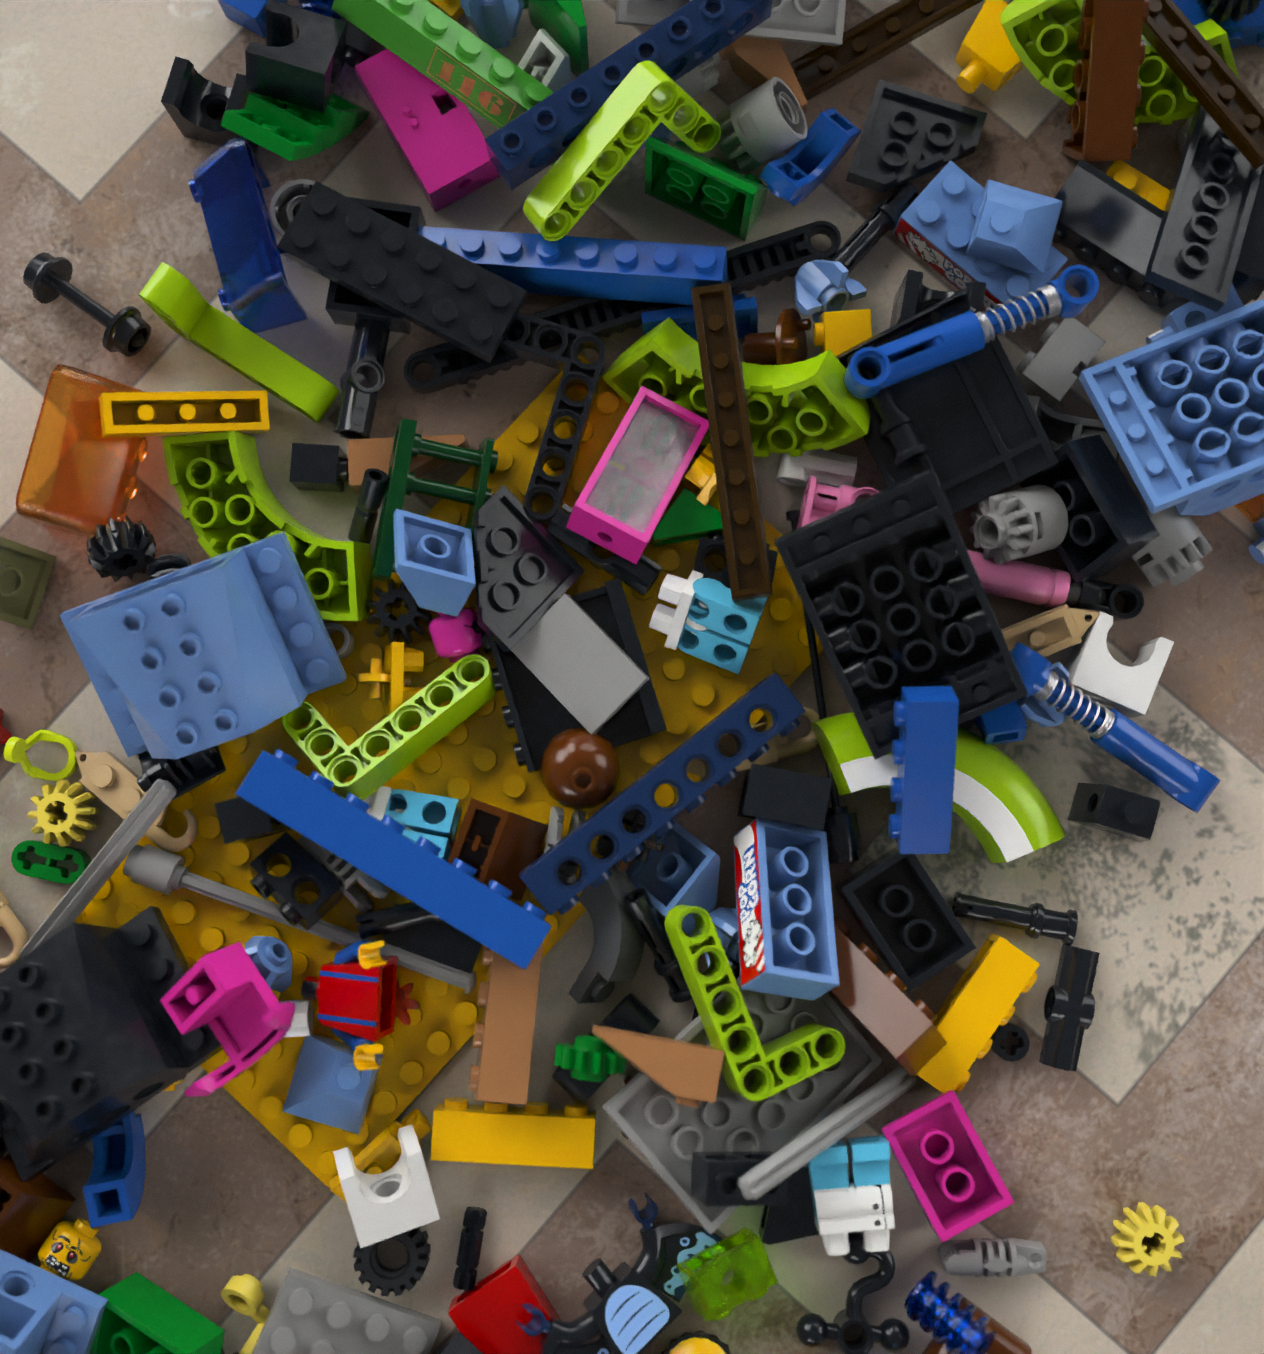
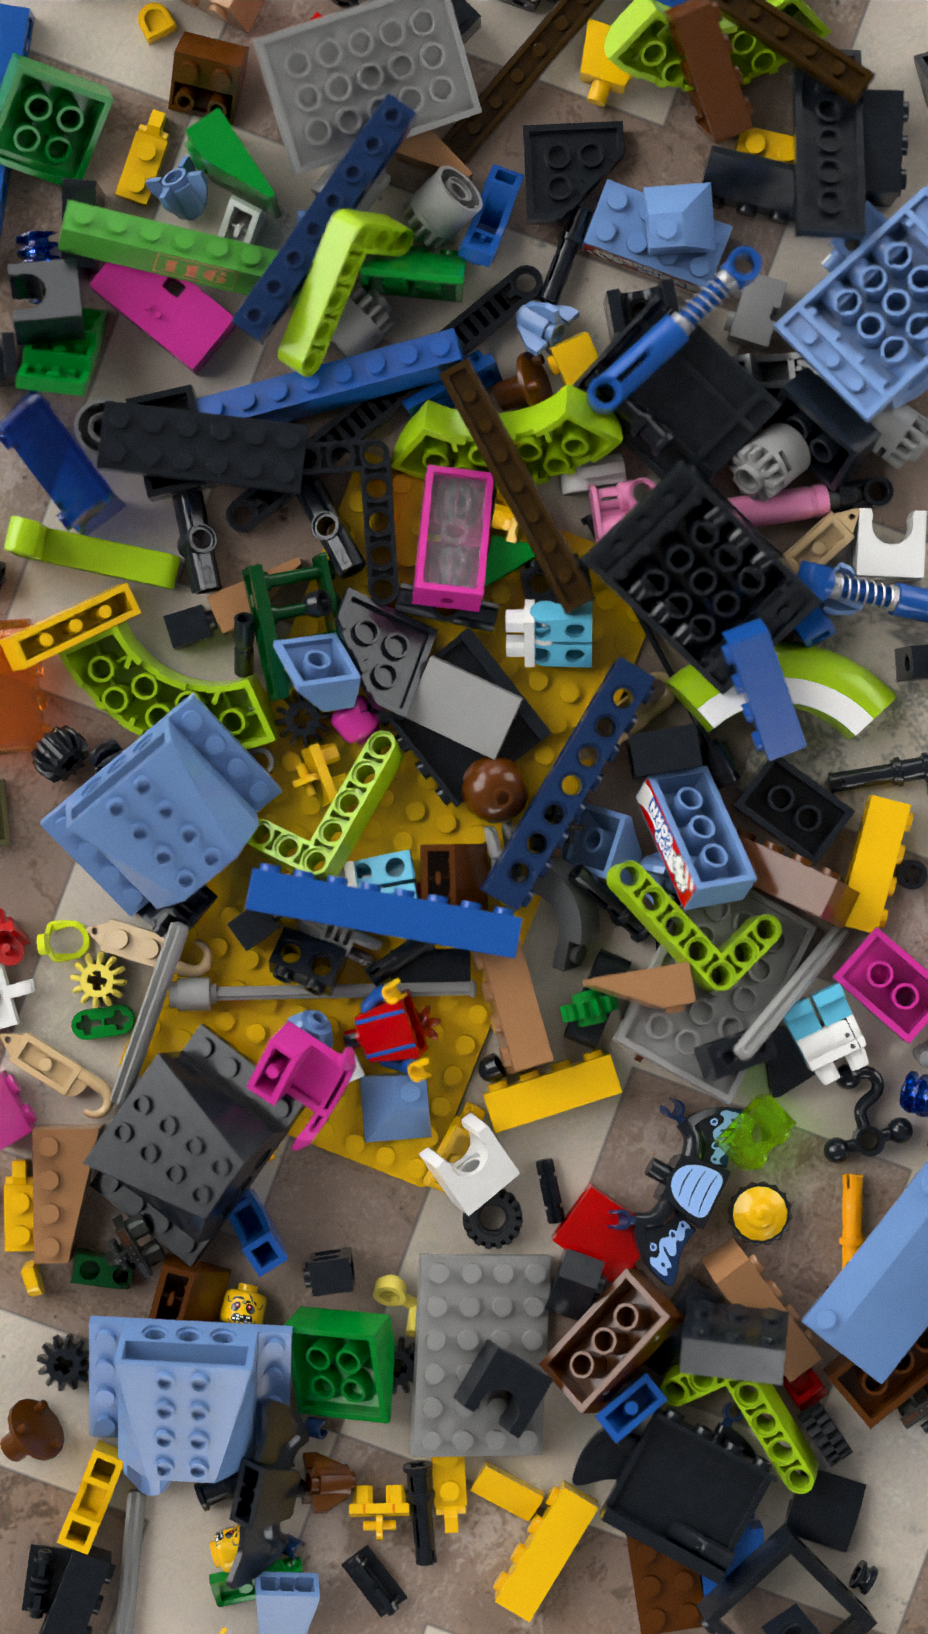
camera: 15 degrees left, 5 degrees up
(180, 1250) = (330, 1272): none -> black brick
(455, 1081) = (491, 1068): none -> black hinge
(470, 492) = (318, 604): none -> black hinge
(512, 435) = (339, 544): none -> black piece
(627, 210) = (362, 323): none -> light grey gear

